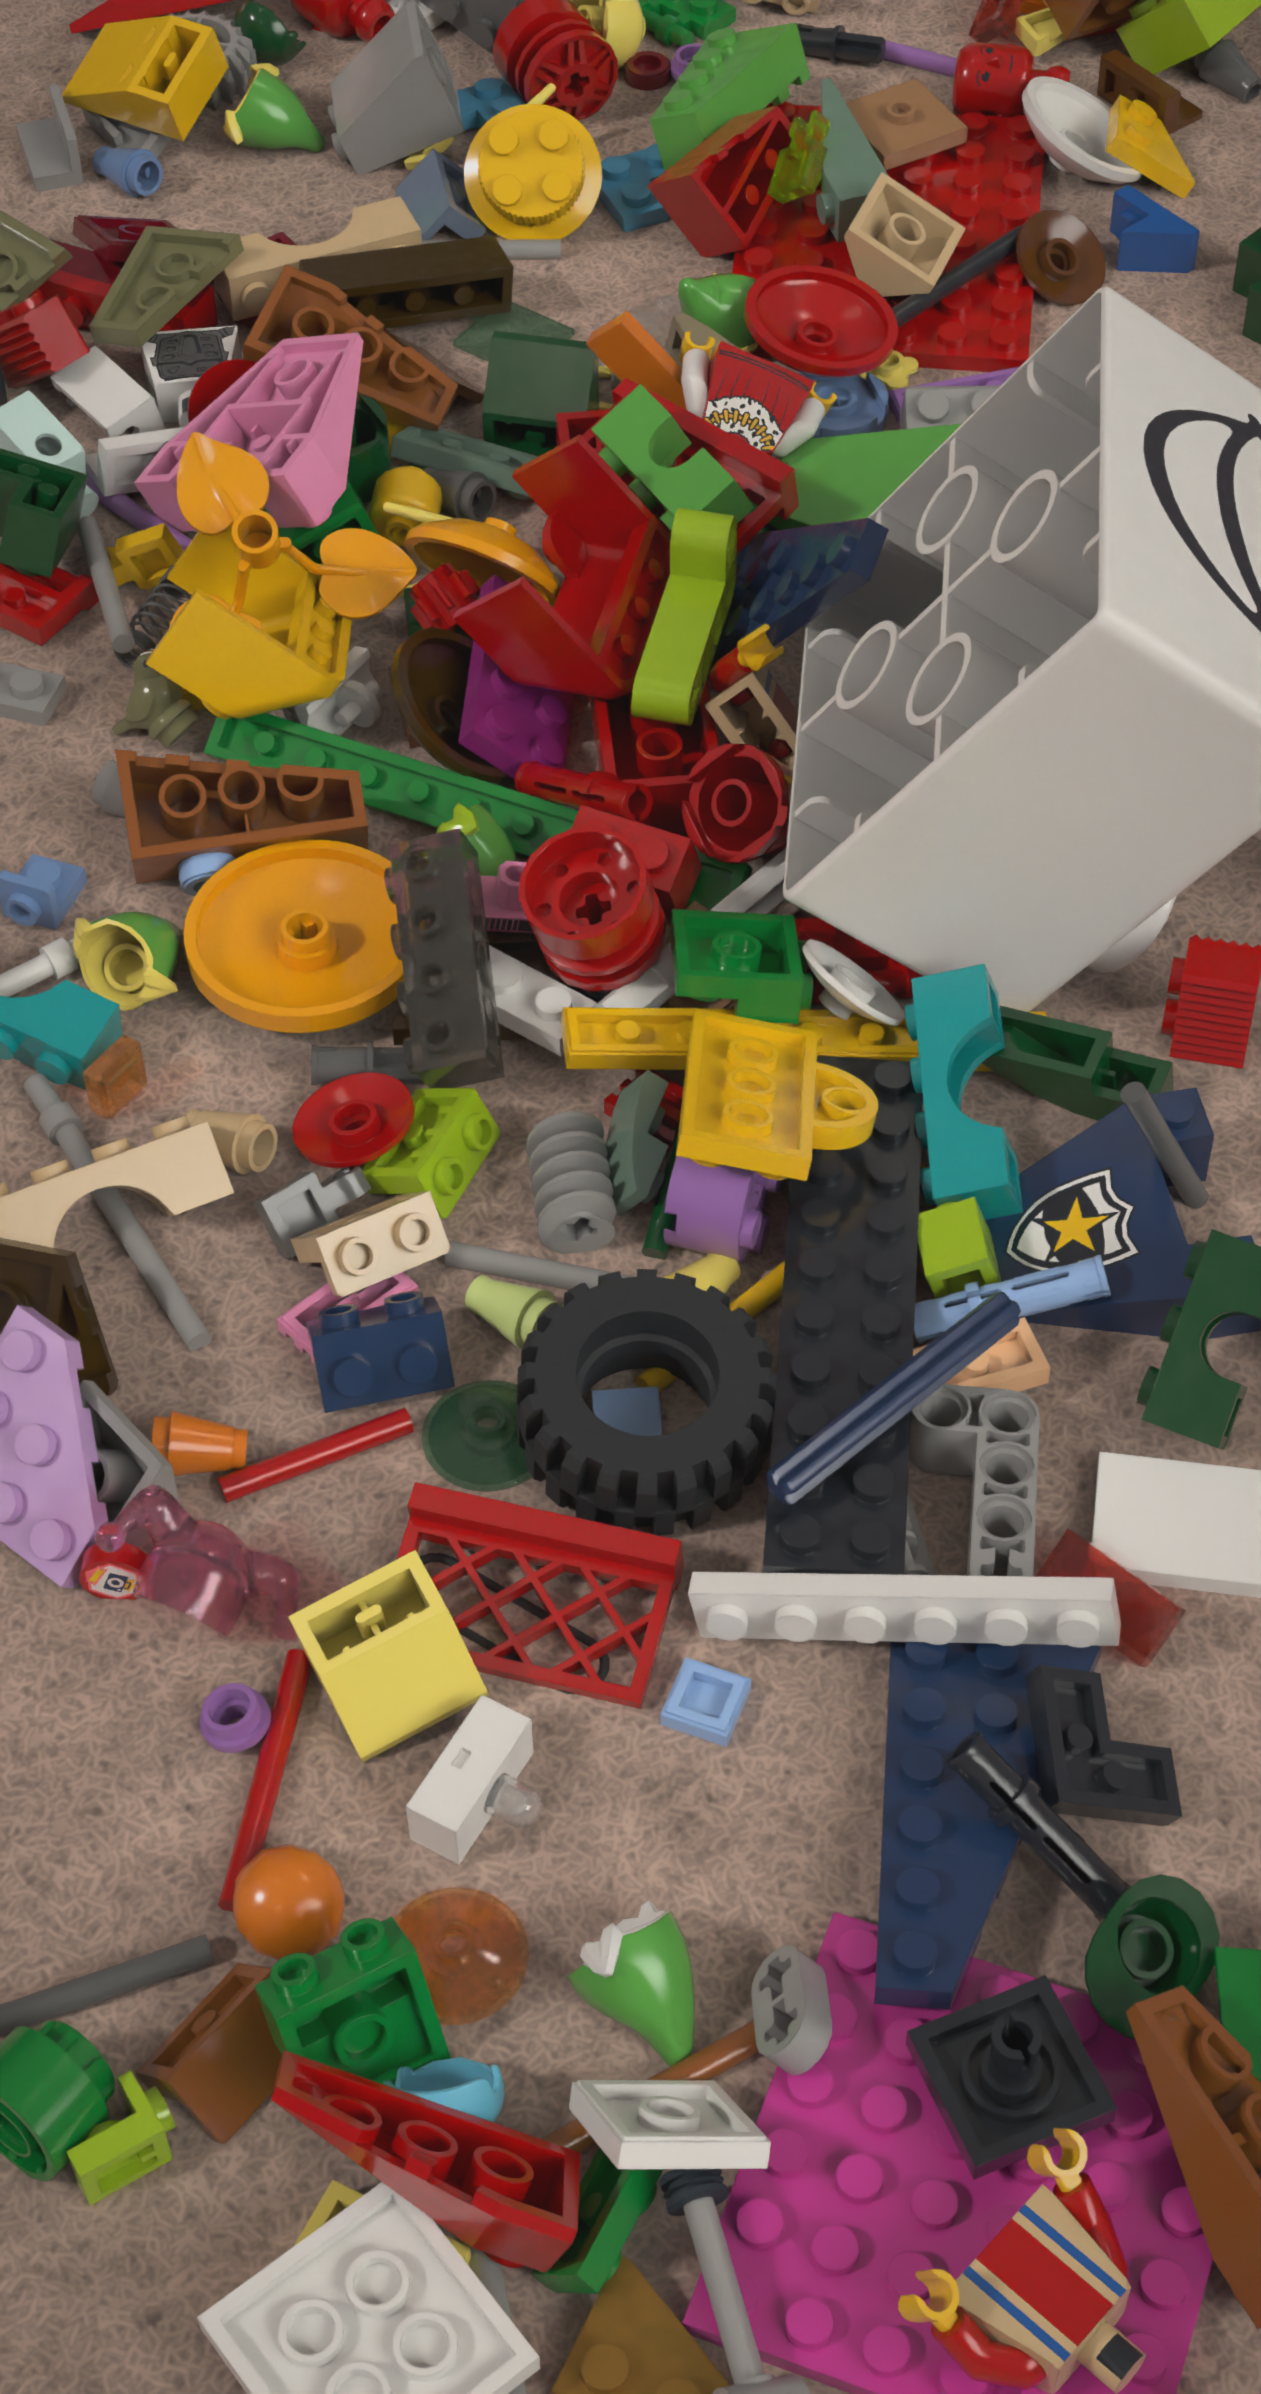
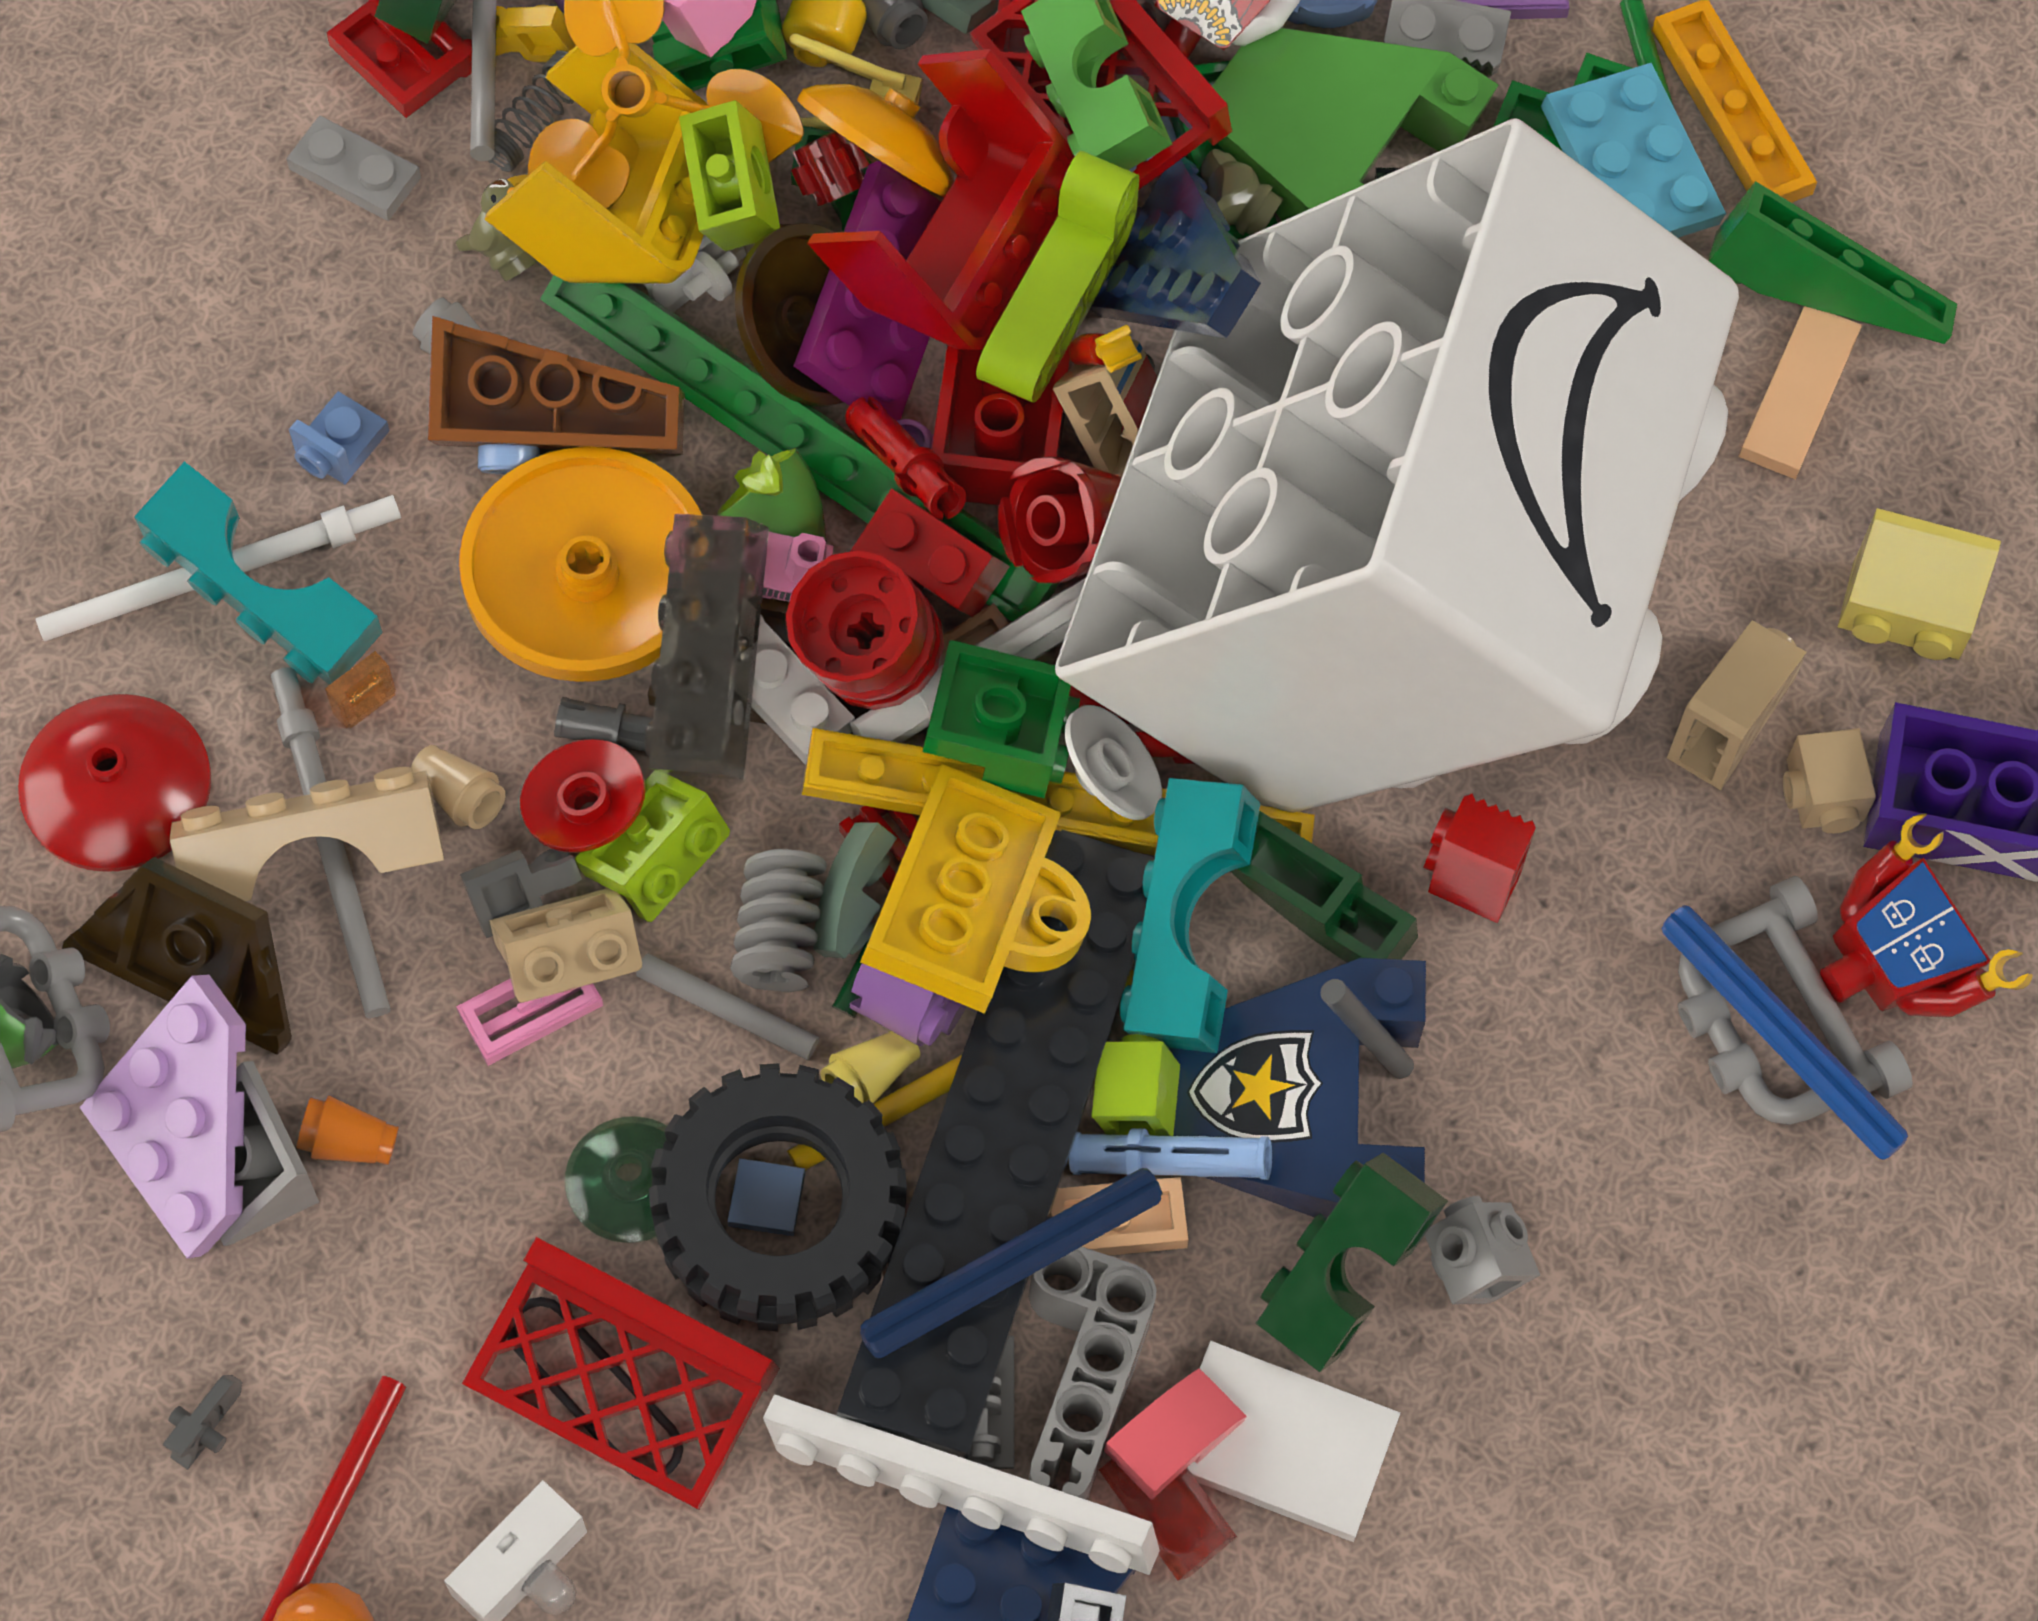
camera: 10 degrees right, 15 degrees up
(110, 1735) = (196, 1430): none -> dark grey piece
(113, 1573) = (239, 1255): tile -> none
(129, 951) = (416, 539): light yellow hat -> none
(201, 1565) = (316, 1280): clear pink piece -> none
(227, 1704) = (304, 1425): medium lavender plate -> none
(315, 1455) = (459, 1165): red bar -> none
(359, 602) = (729, 175): none -> lime brick
(380, 1351) = (544, 1069): dark blue bracket -> none
(388, 1655) = (467, 1417): light yellow slope -> none
(508, 1306) = (688, 1051): yellowish green cone -> none
(705, 1702) = (759, 1519): light blue tile -> none
(1095, 1527) = (1174, 1432): none -> coral slope

